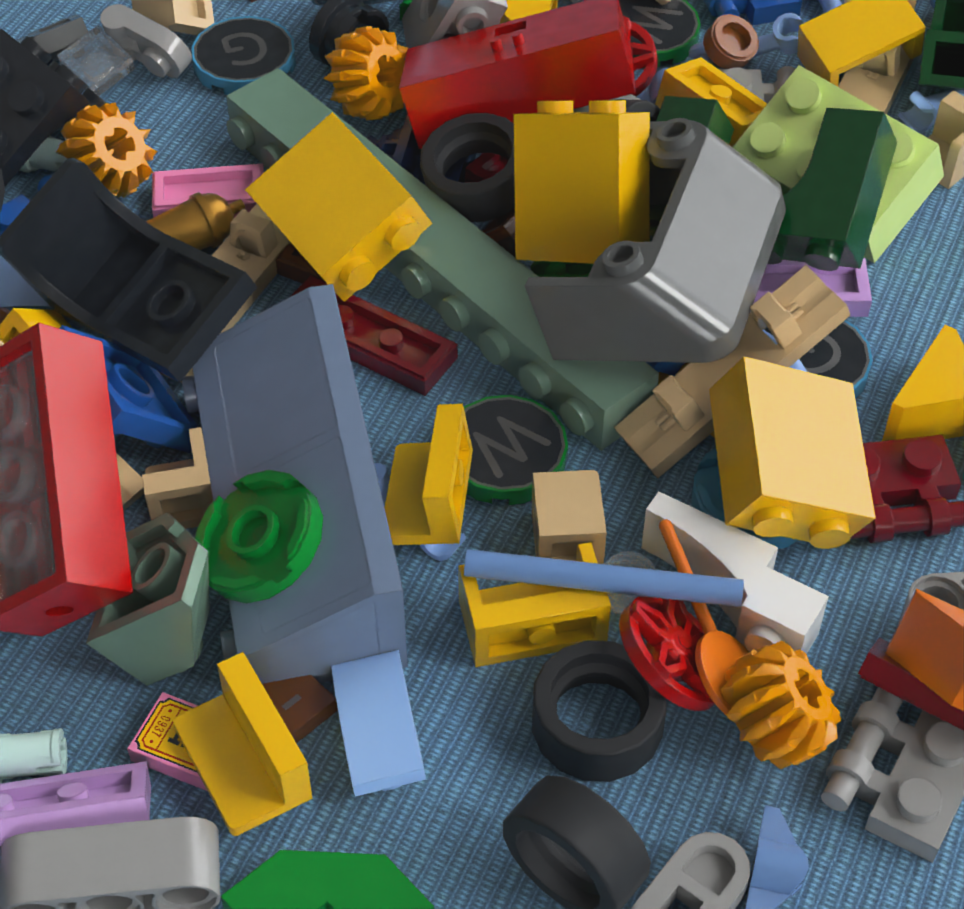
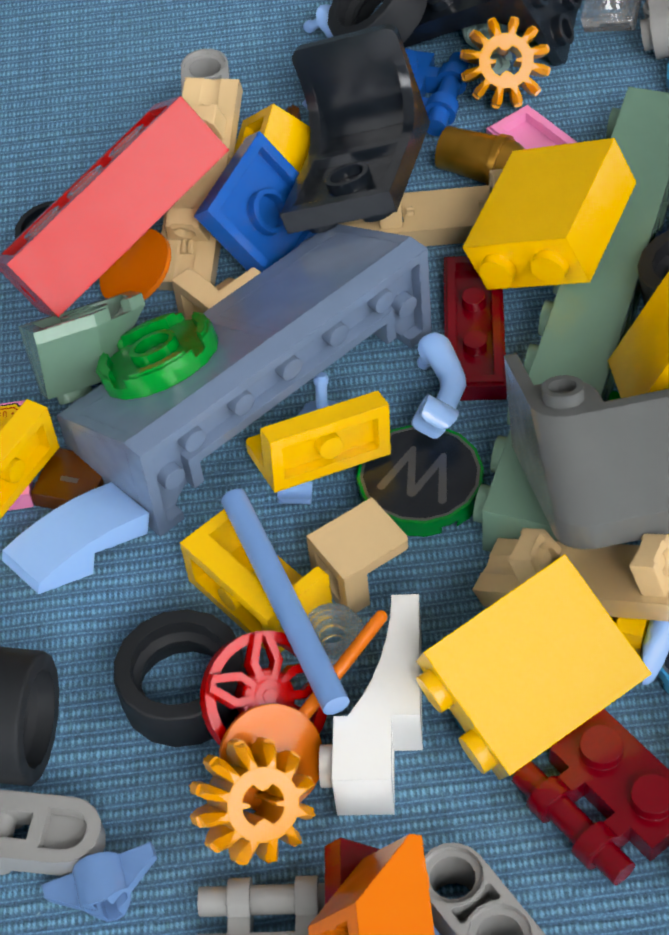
camera: 65 degrees right, 0 degrees up
(460, 389) = (439, 413): none -> light blue piece

